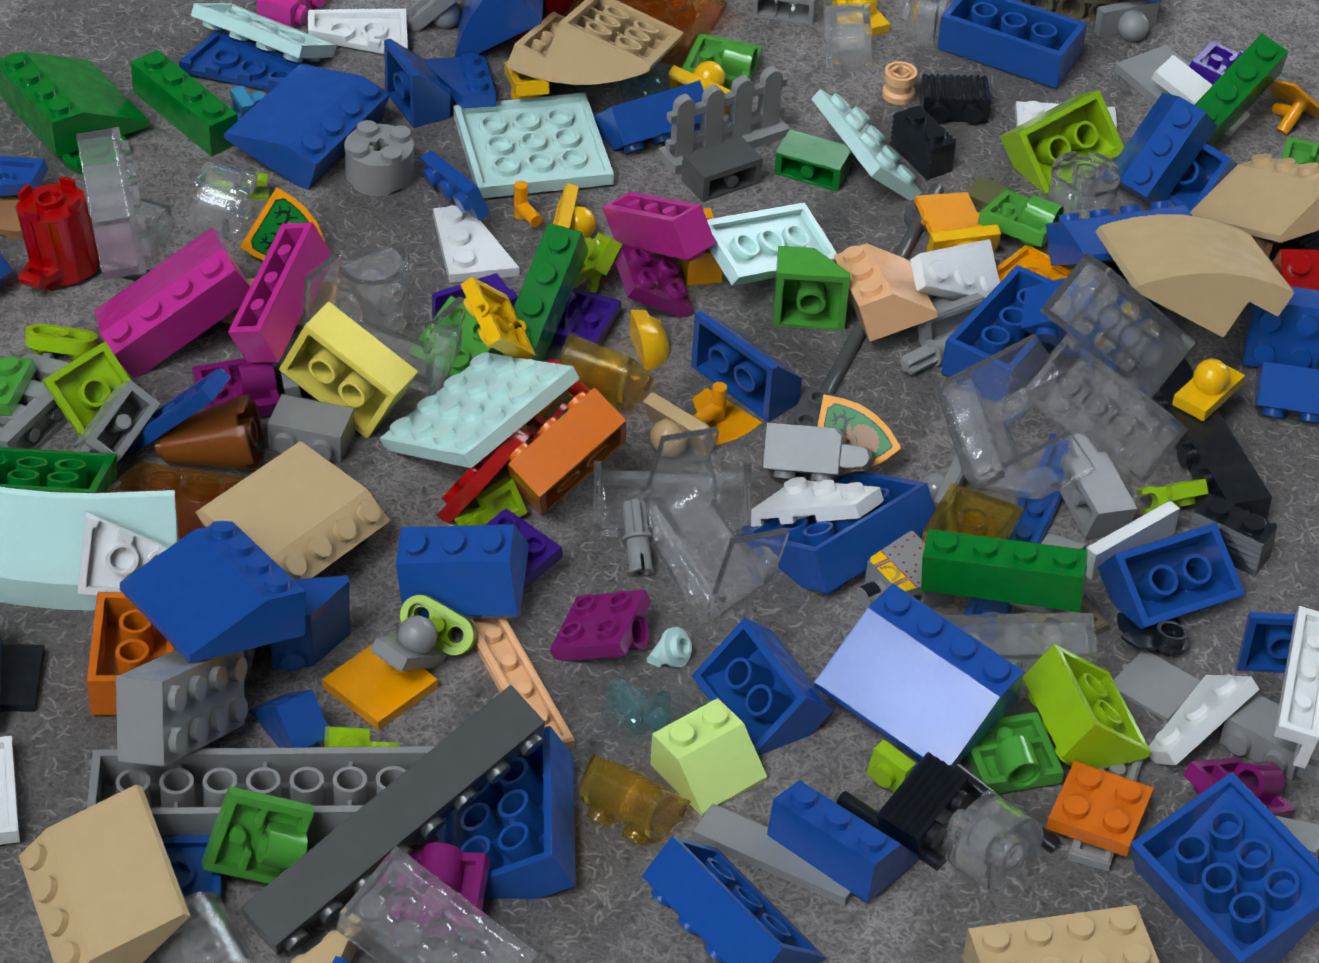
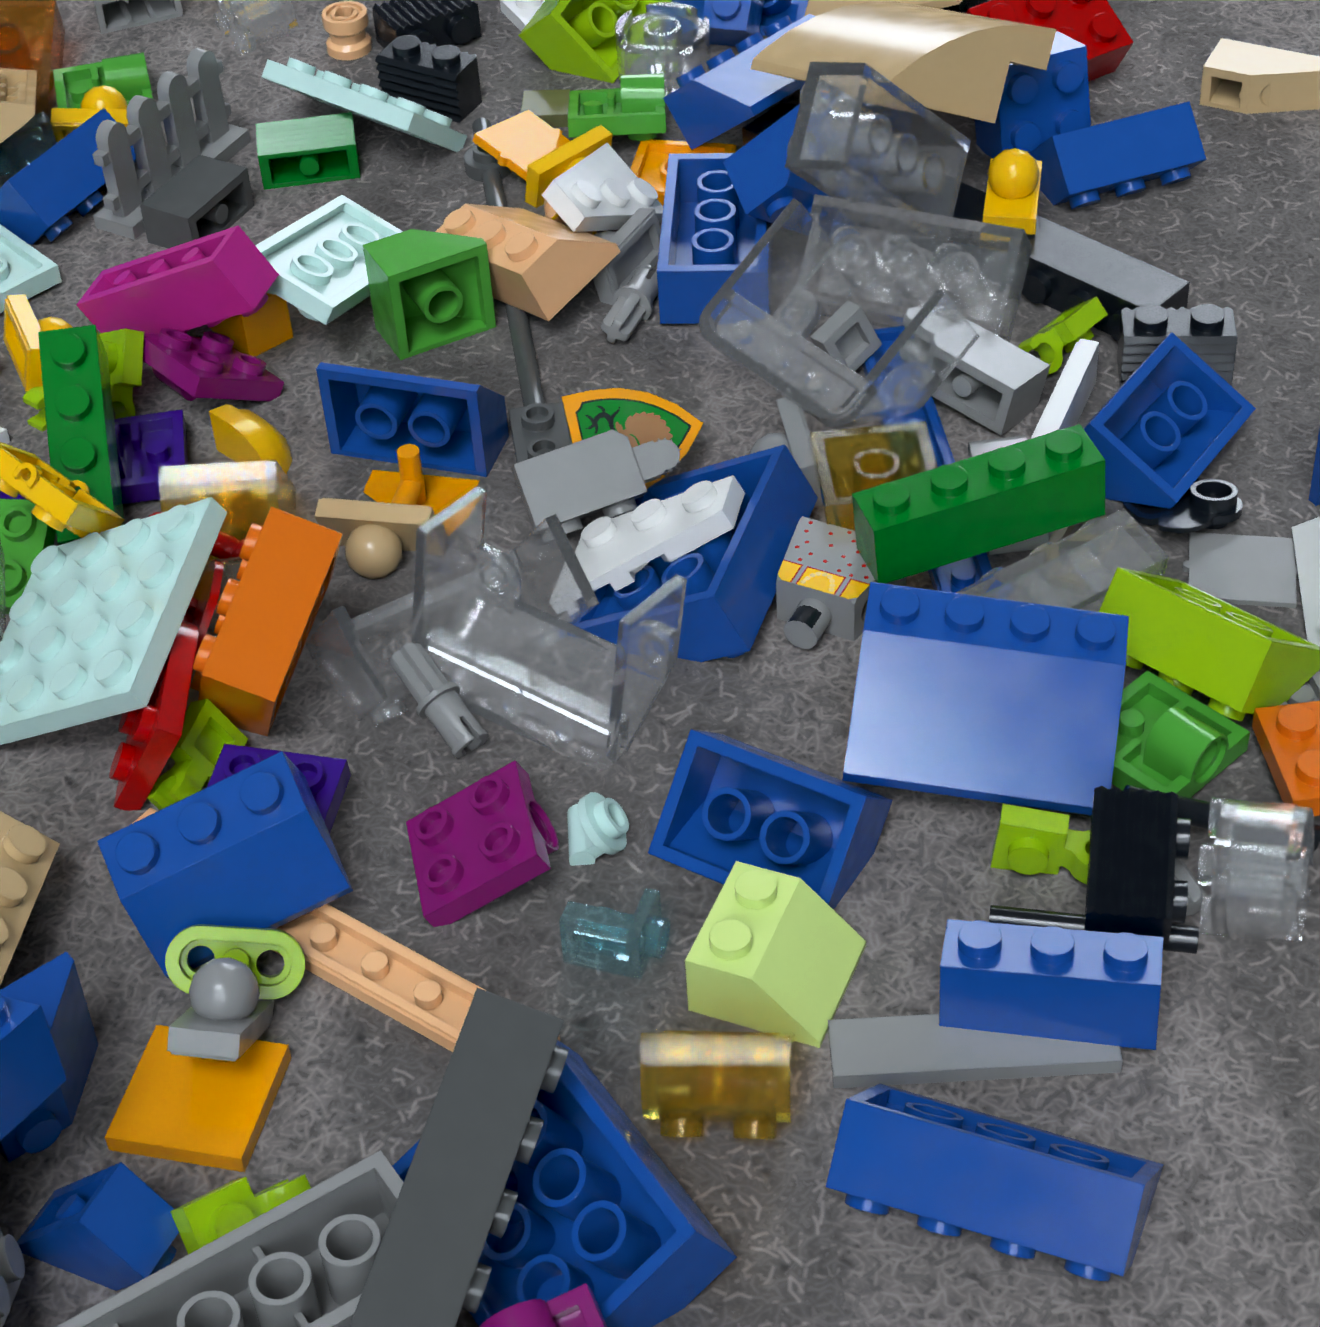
camera: 25 degrees left, 0 degrees up
(1030, 432) = (847, 336): none -> light grey plate

